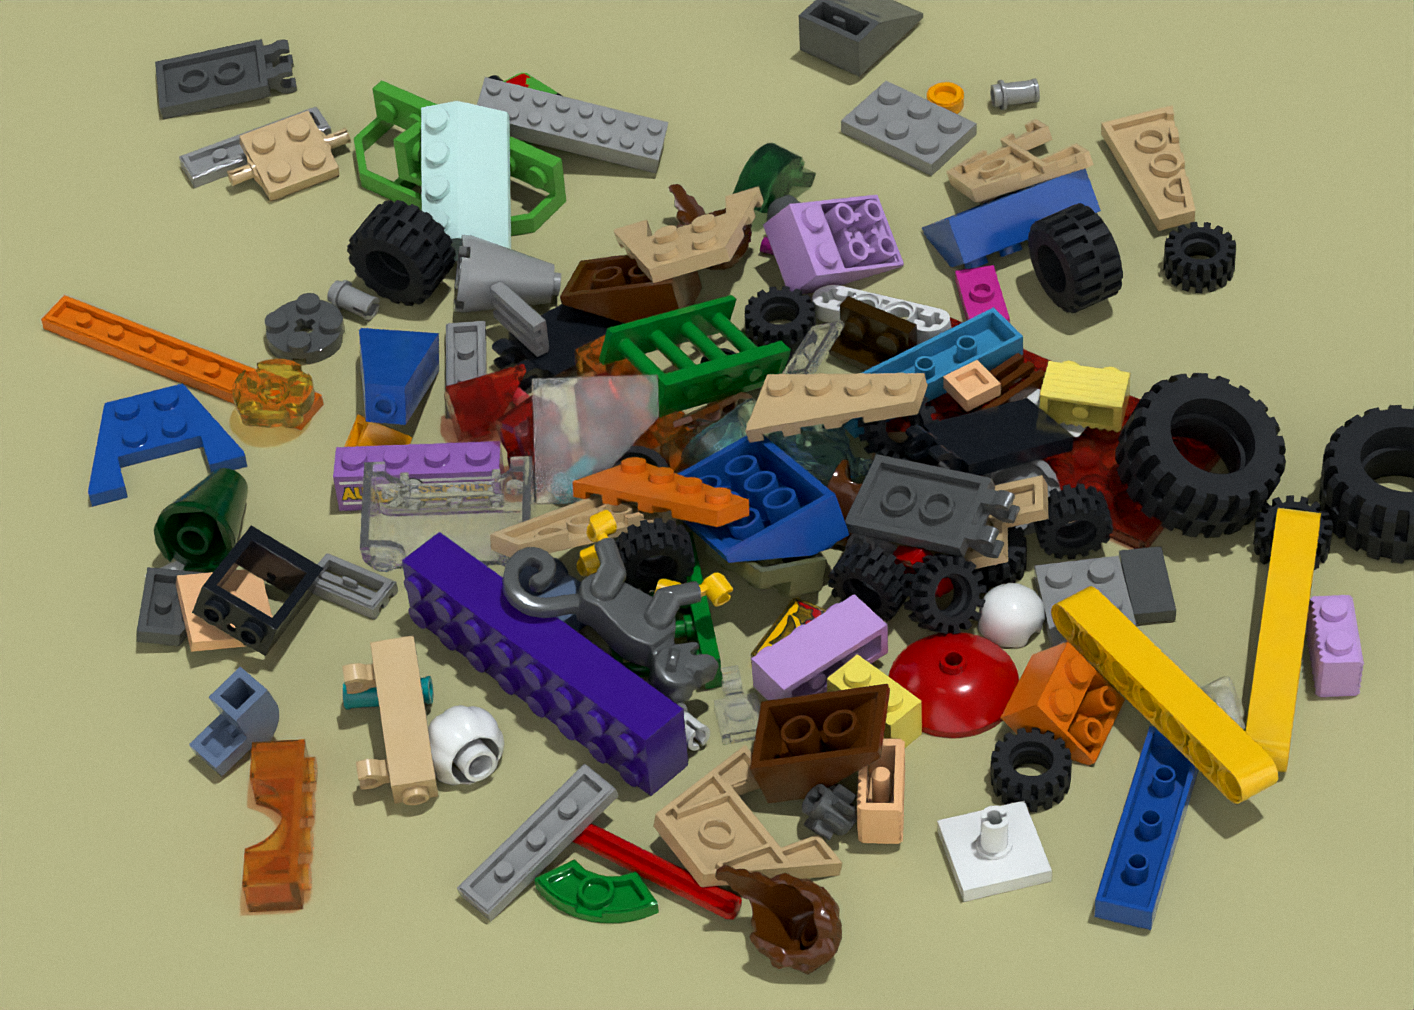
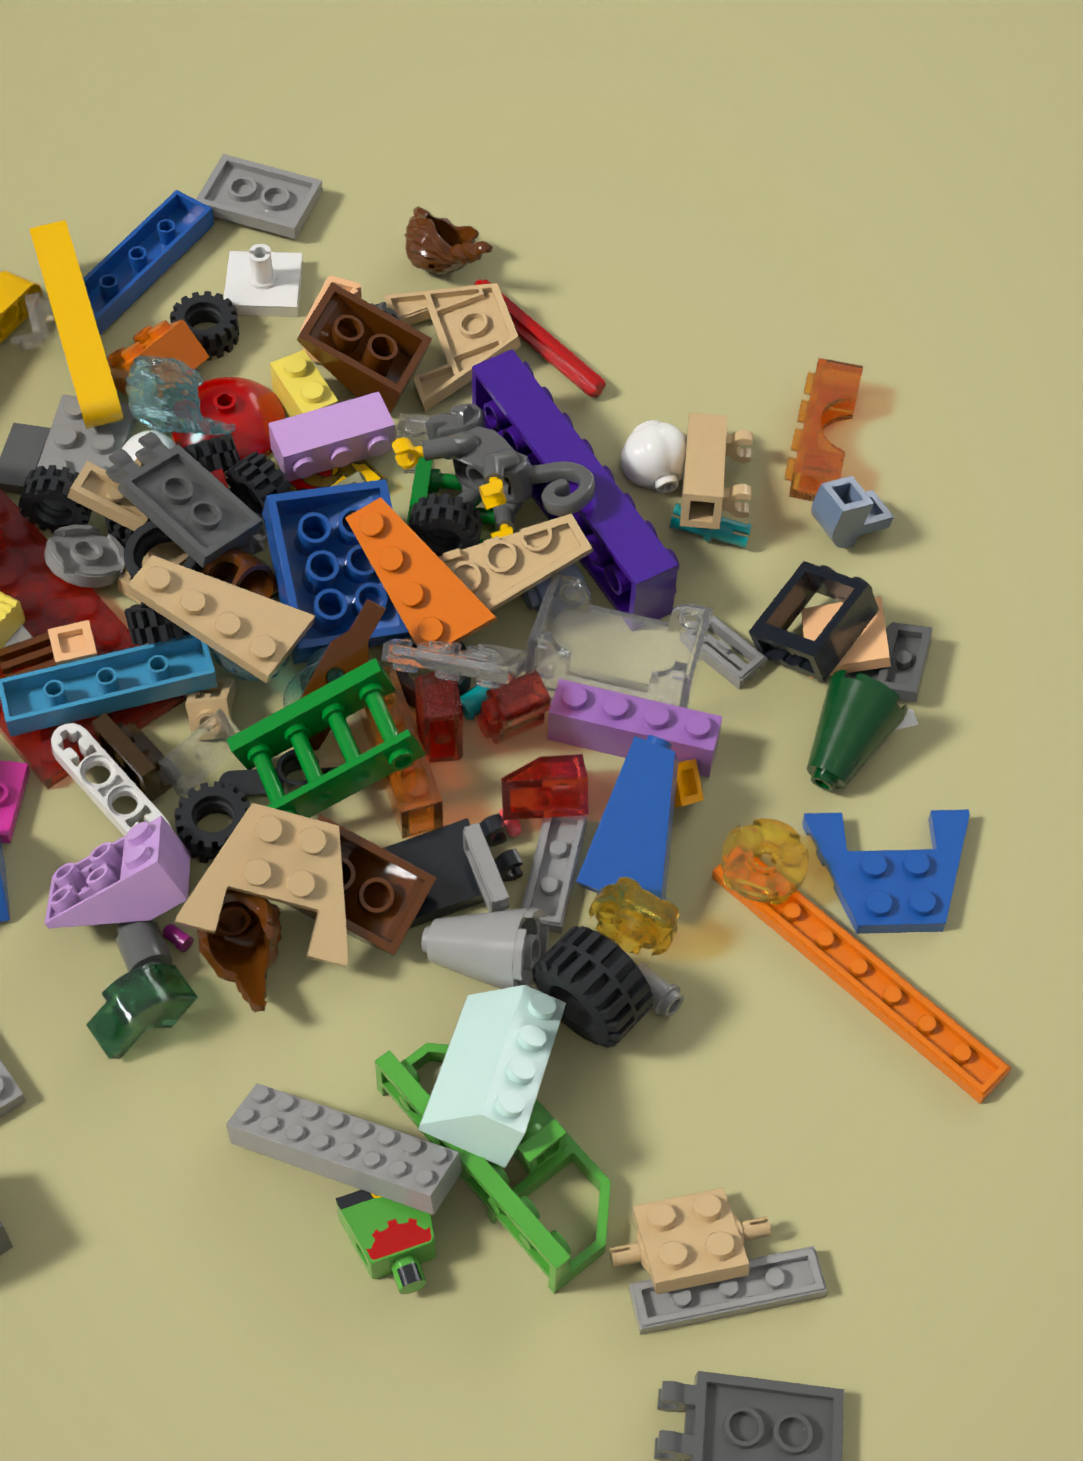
camera: 170 degrees left, 10 degrees up
(306, 312) = (719, 946): dark grey plate -> none
(375, 309) = (634, 917): none -> clear yellow plate
(537, 842) = (615, 360): light grey tile -> none
(597, 896) = (590, 333): green tile -> none
(990, 438) = (83, 575): black tile -> none
(1009, 625) = (167, 399): none -> clear light blue hair
(1054, 954) = (260, 196): none -> light grey plate

